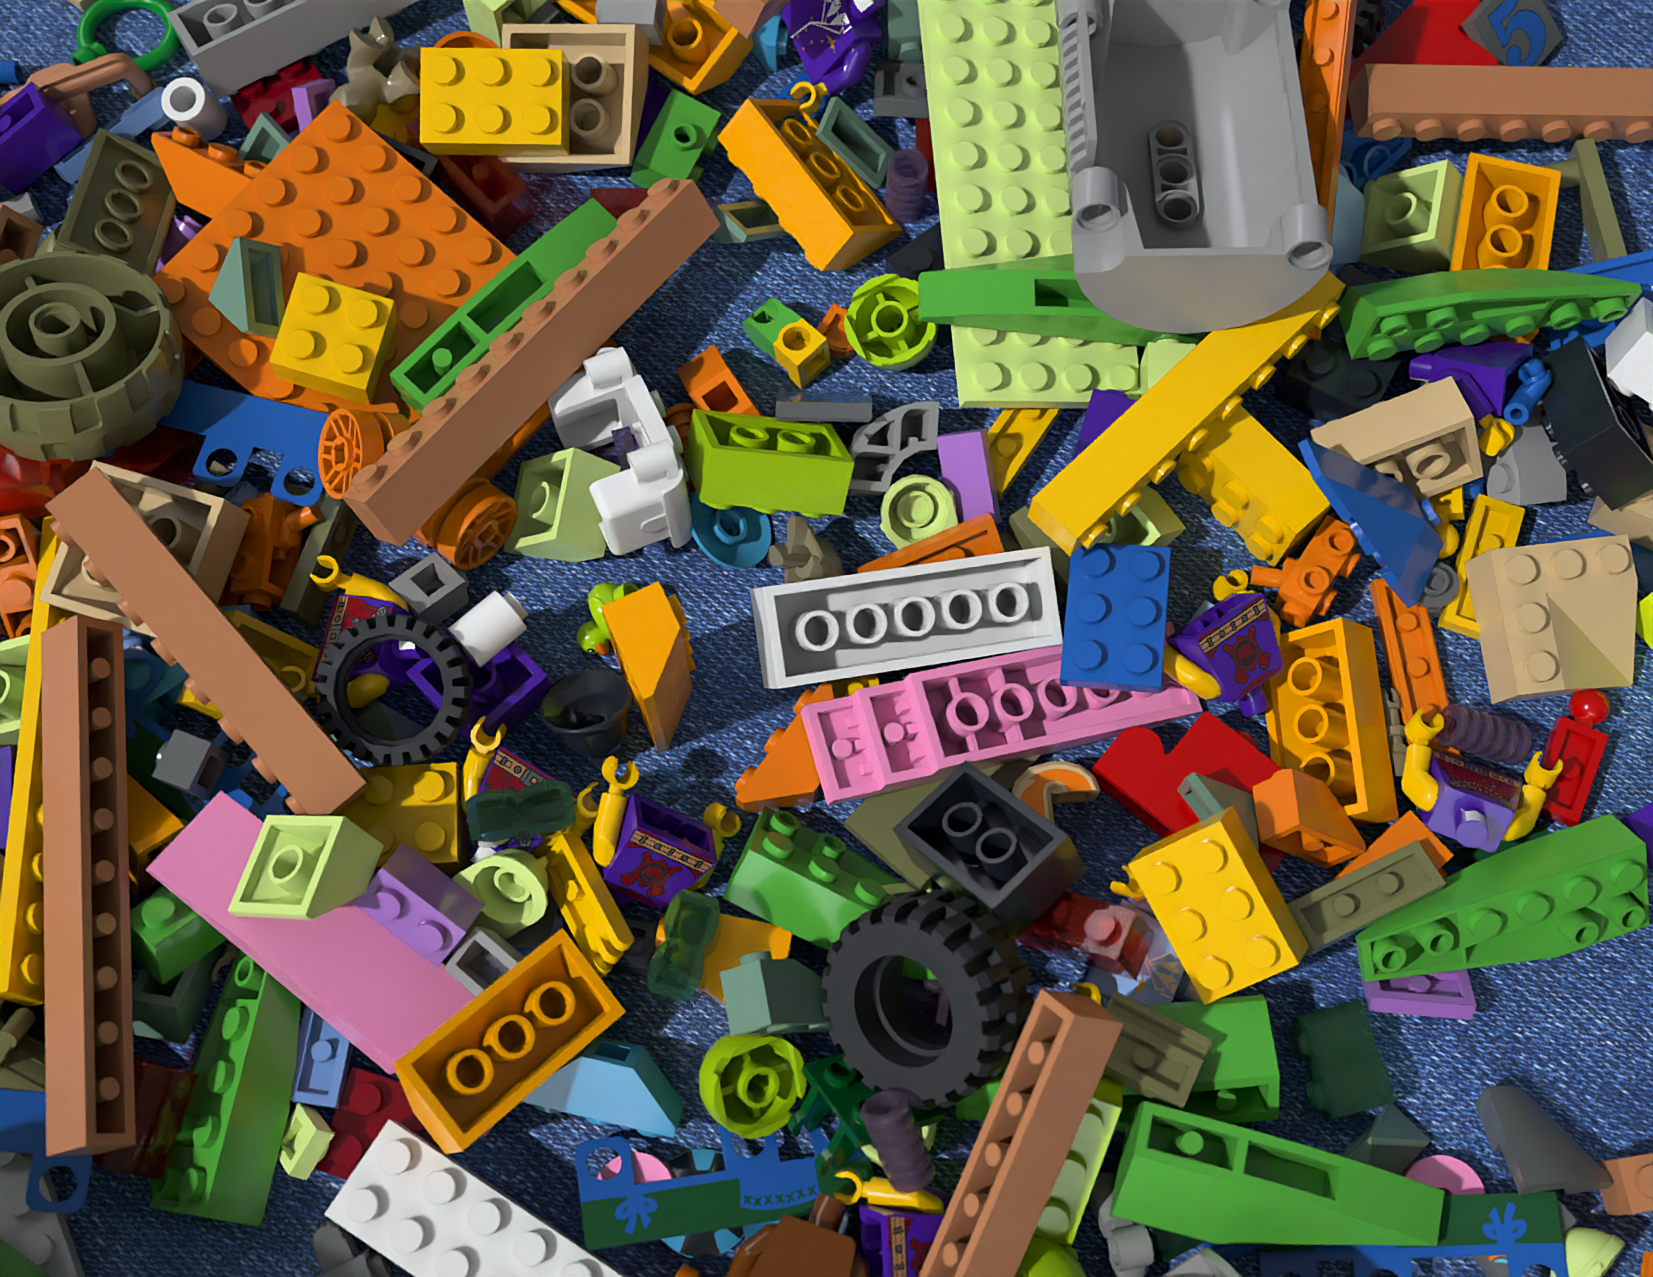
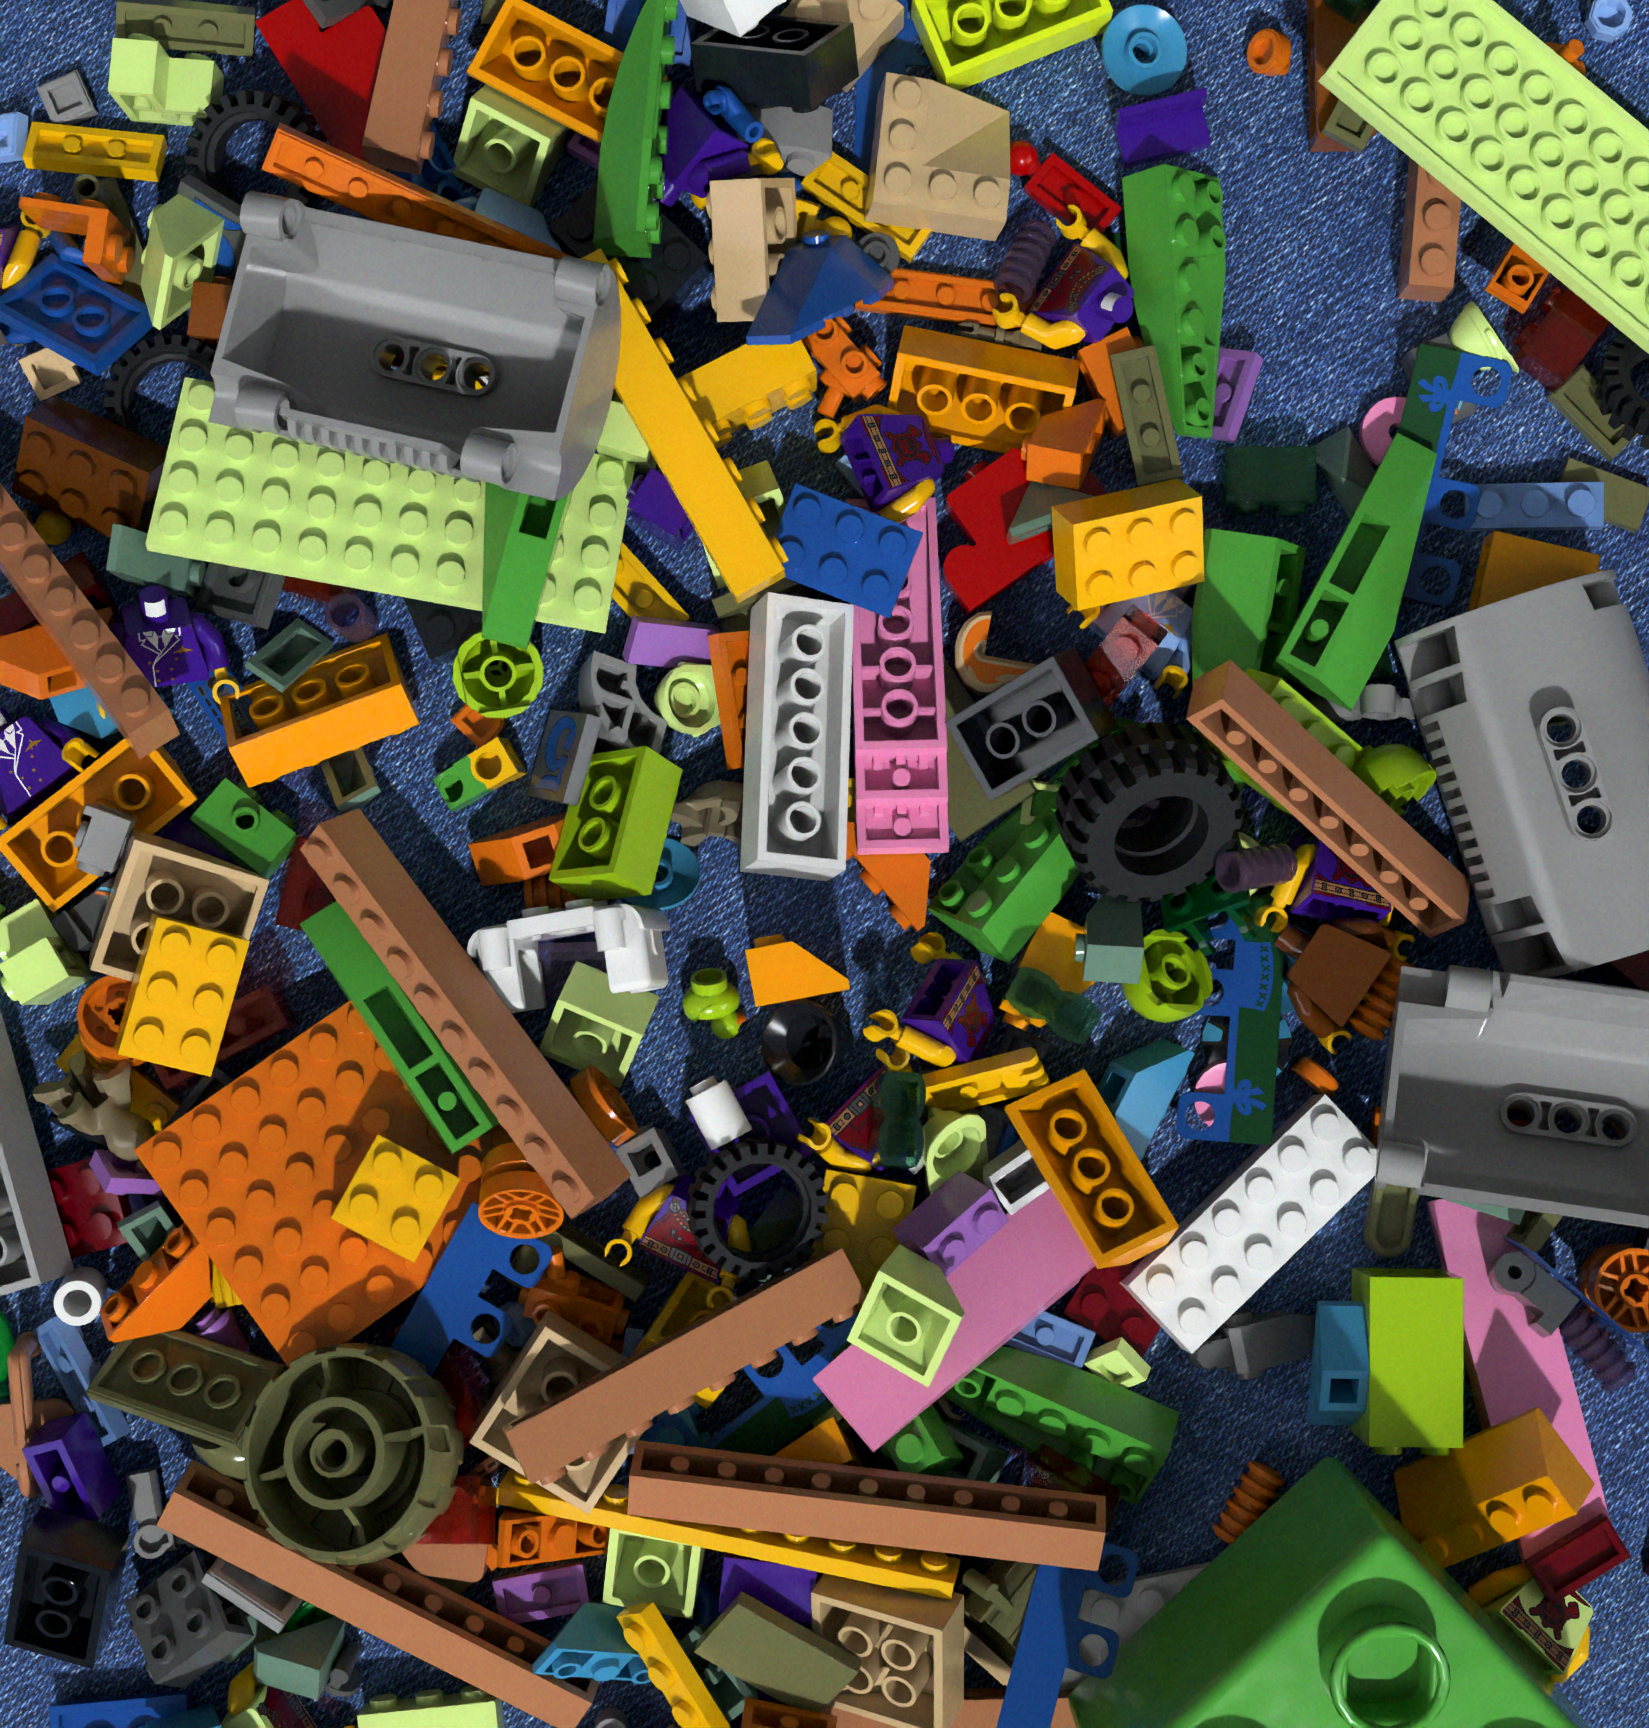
camera: 70 degrees left, 15 degrees up
(190, 764) = (776, 1403): dark grey plate -> none
(251, 288) = (325, 1268): sand green slope -> none
(1154, 1053) = (1235, 631): olive plate -> none
(1535, 1145) = (1377, 342): dark grey slope -> none

